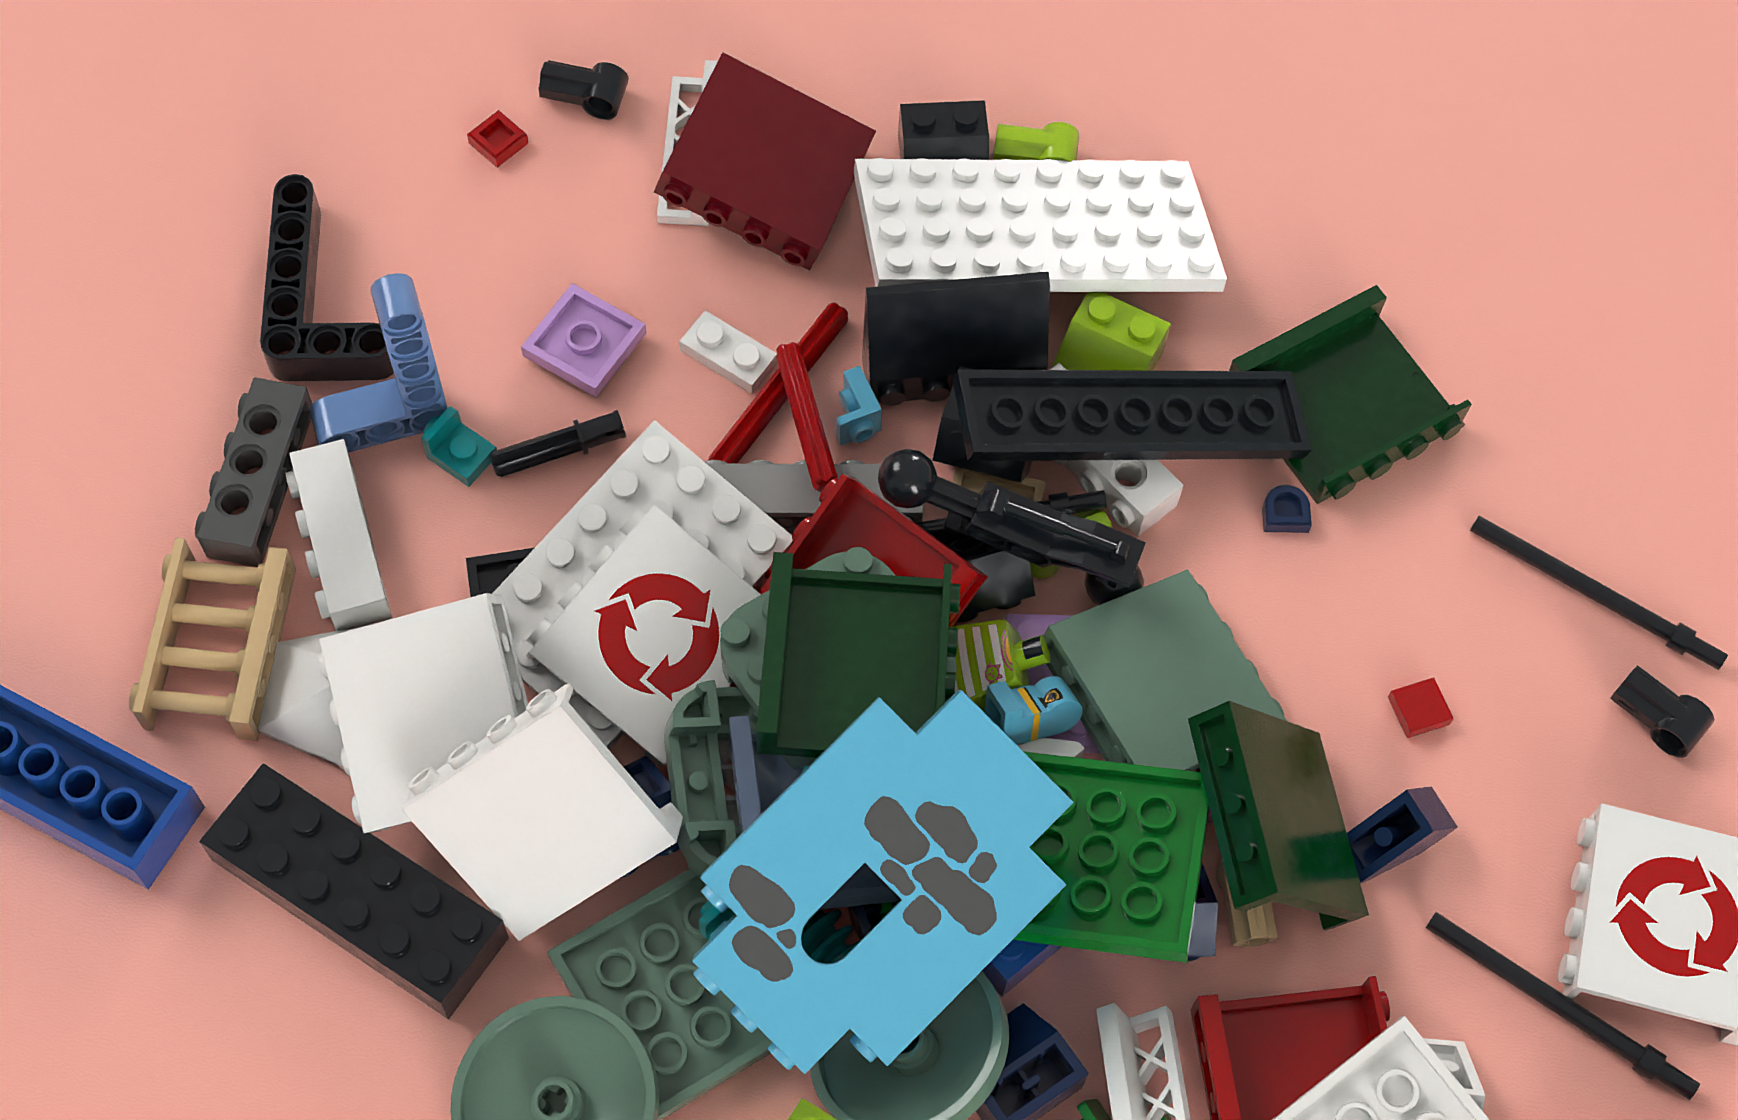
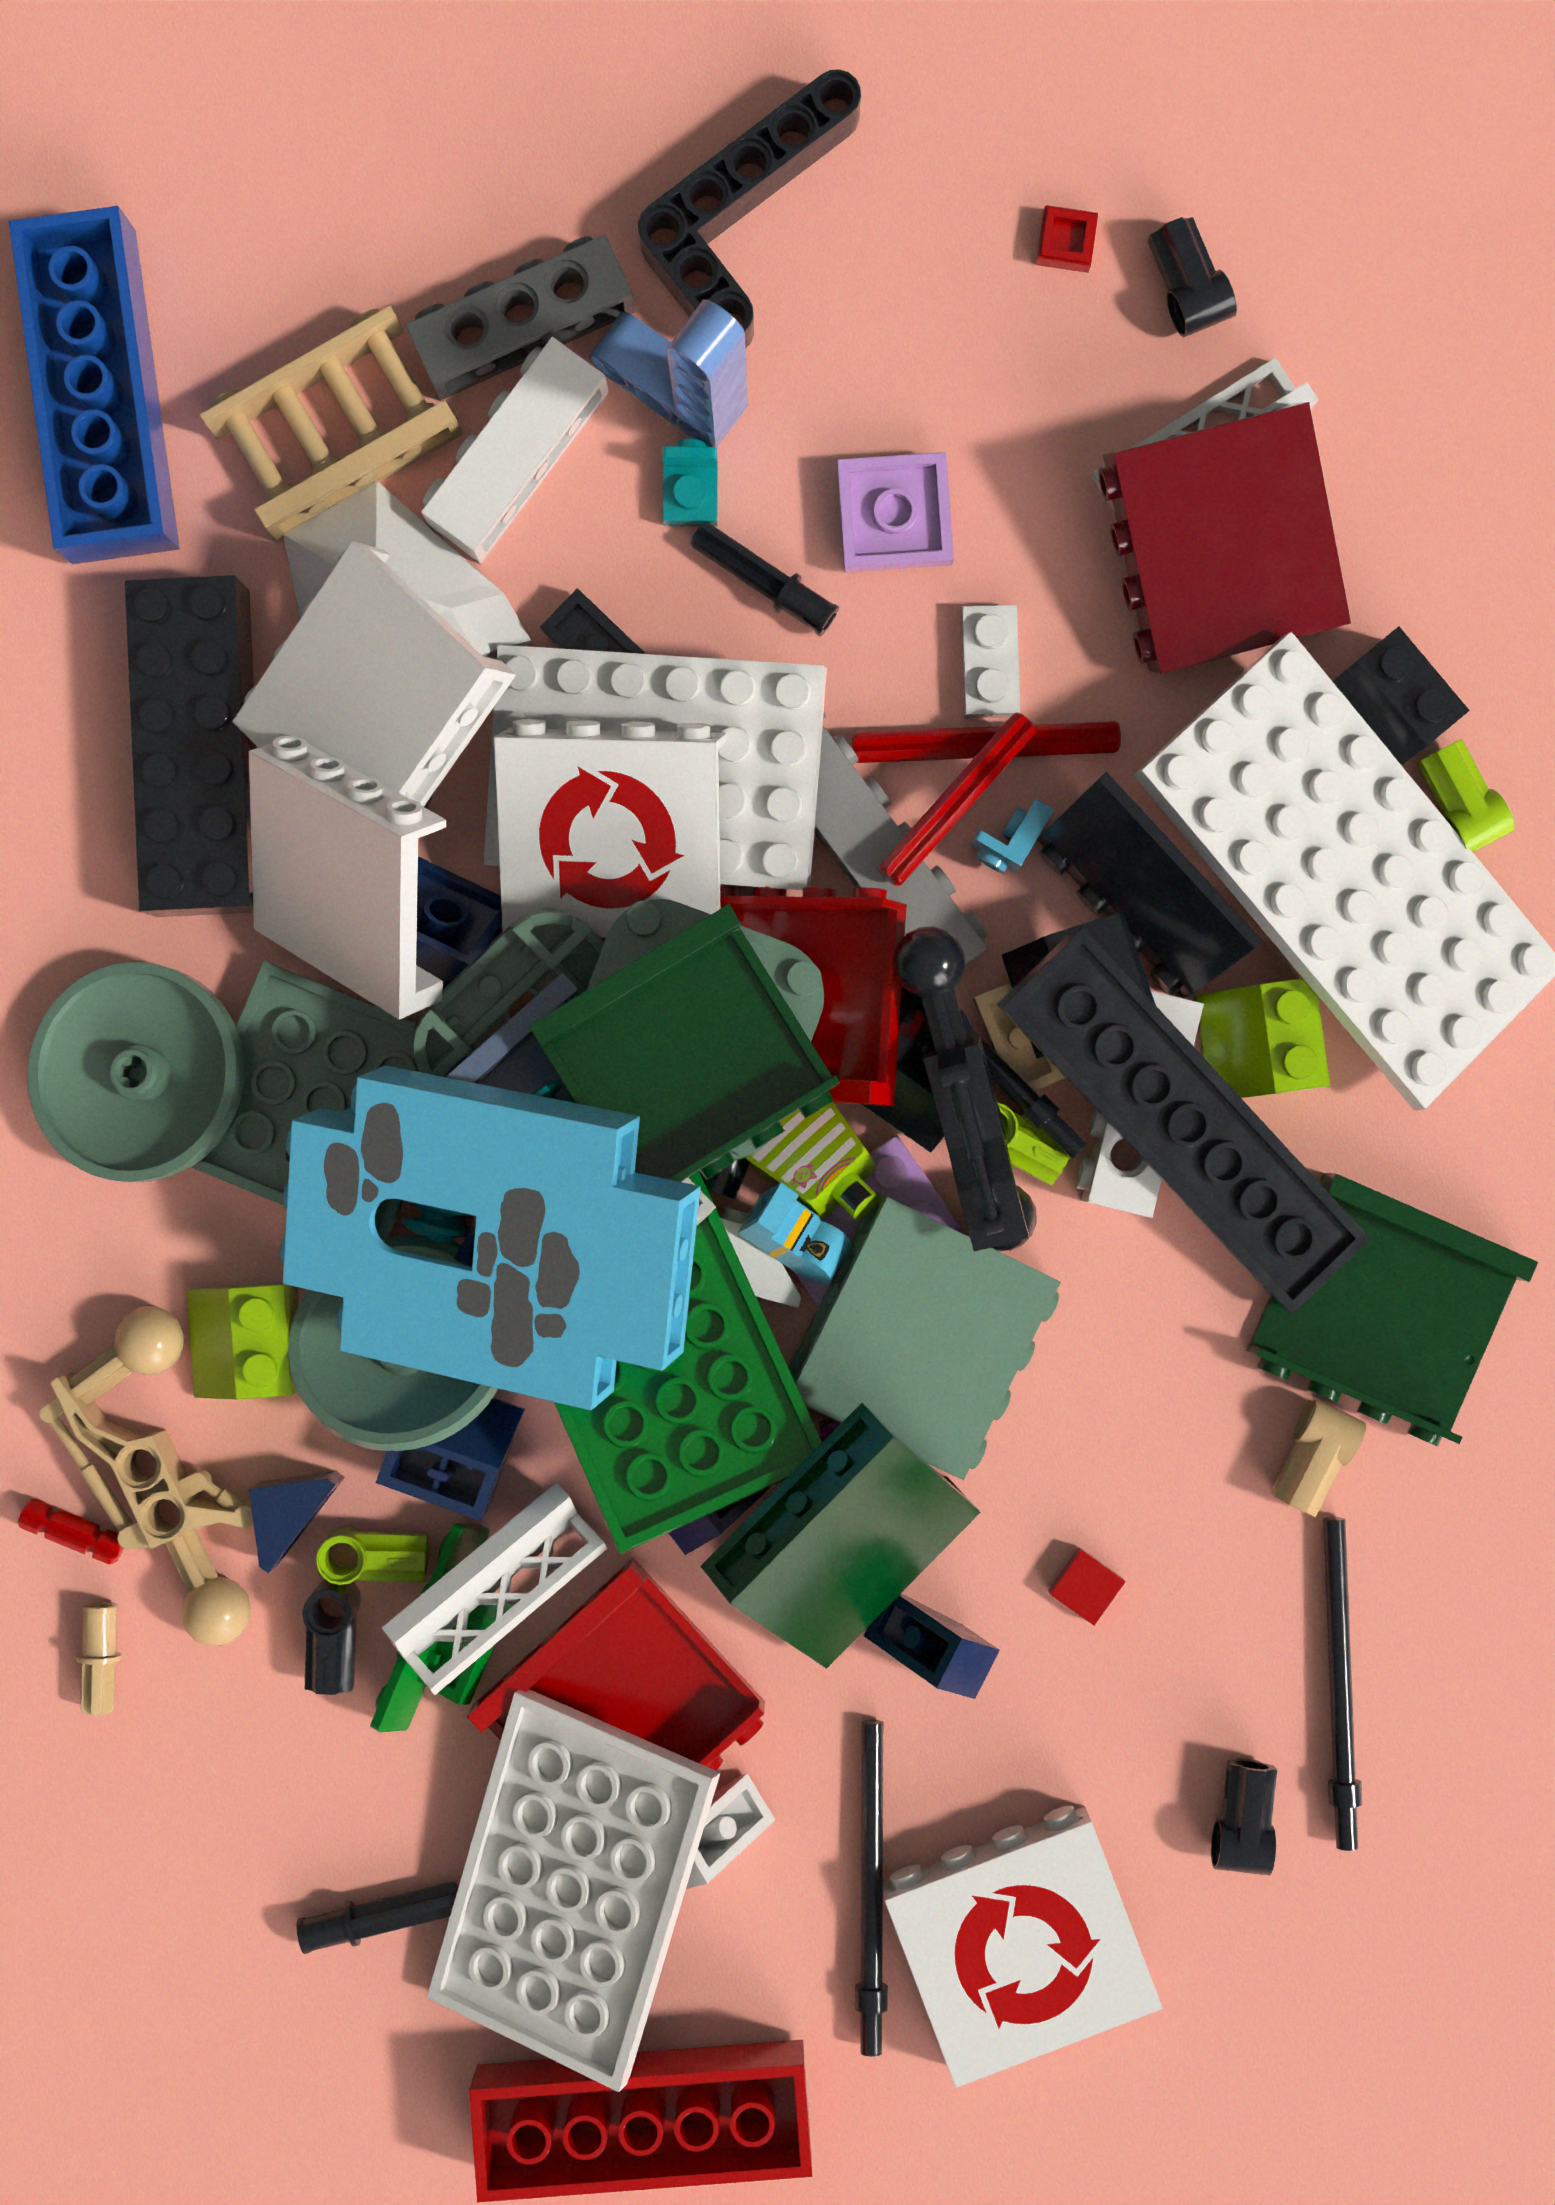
camera: 55 degrees right, 25 degrees up
(1286, 510) = (1213, 1327): dark blue tile -> none
(1417, 492) = (1323, 1444): none -> tan piece

